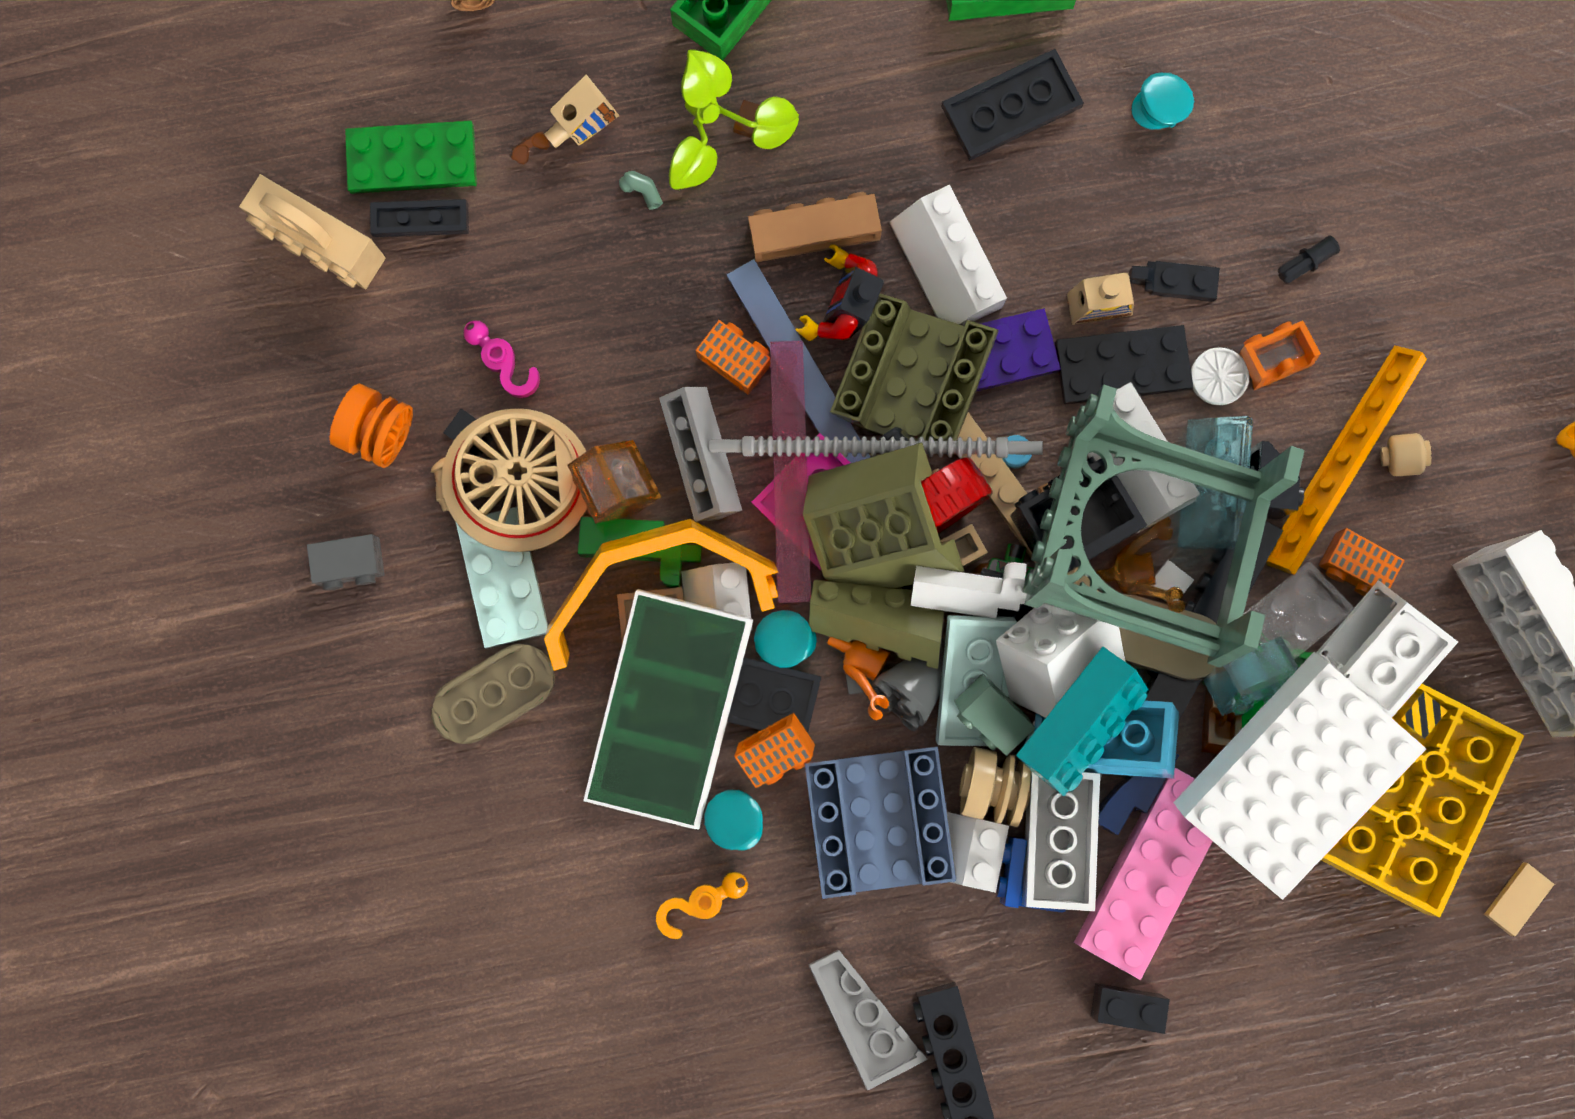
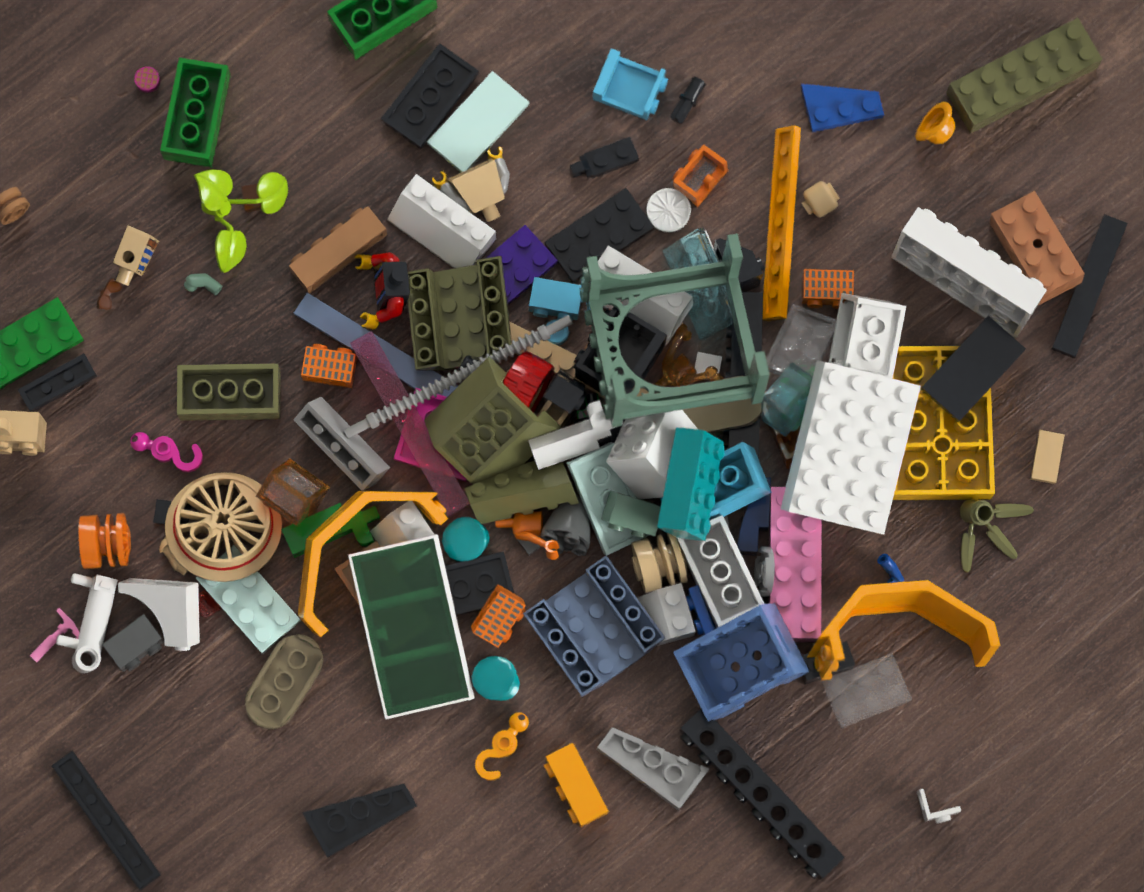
camera: 30 degrees left, 5 degrees down
(210, 747) = (106, 820): none -> black tile
(260, 507) = (44, 647): none -> bright pink piece
(314, 512) = (94, 620): none -> white piece
(409, 541) = (173, 605): none -> white arch
(450, 557) = (207, 604): none -> clear red slope
(486, 897) = (351, 820): none -> black wing
(603, 327) = (228, 392): none -> olive brick
(760, 997) = (575, 785): none -> light orange brick
(991, 531) = (566, 391): none -> black arch
(997, 985) = (710, 659): none -> medium blue container
(1014, 236) = (479, 186): none -> tan torso
(1034, 412) = (554, 299): none -> medium azure brick
(1051, 163) = (478, 122): none -> light aqua tile
(1103, 299) = (561, 198): tan torso -> none
(1115, 863) = (764, 571): none -> light grey tile
(1160, 1065) = (866, 690): none -> clear plate
(1162, 101) = (532, 42): teal piece -> none
(1249, 209) = (629, 86): none -> medium azure panel
(1265, 940) = (891, 568): none -> blue arm
(1332, 1073) = (916, 597): none -> light orange panel
(1409, 931) = (981, 513): none -> olive plant
(1424, 715) = (916, 366): sticker -> none
(1483, 357) = (838, 107): none -> blue wing
(1493, 754) = (973, 369): none -> black tile

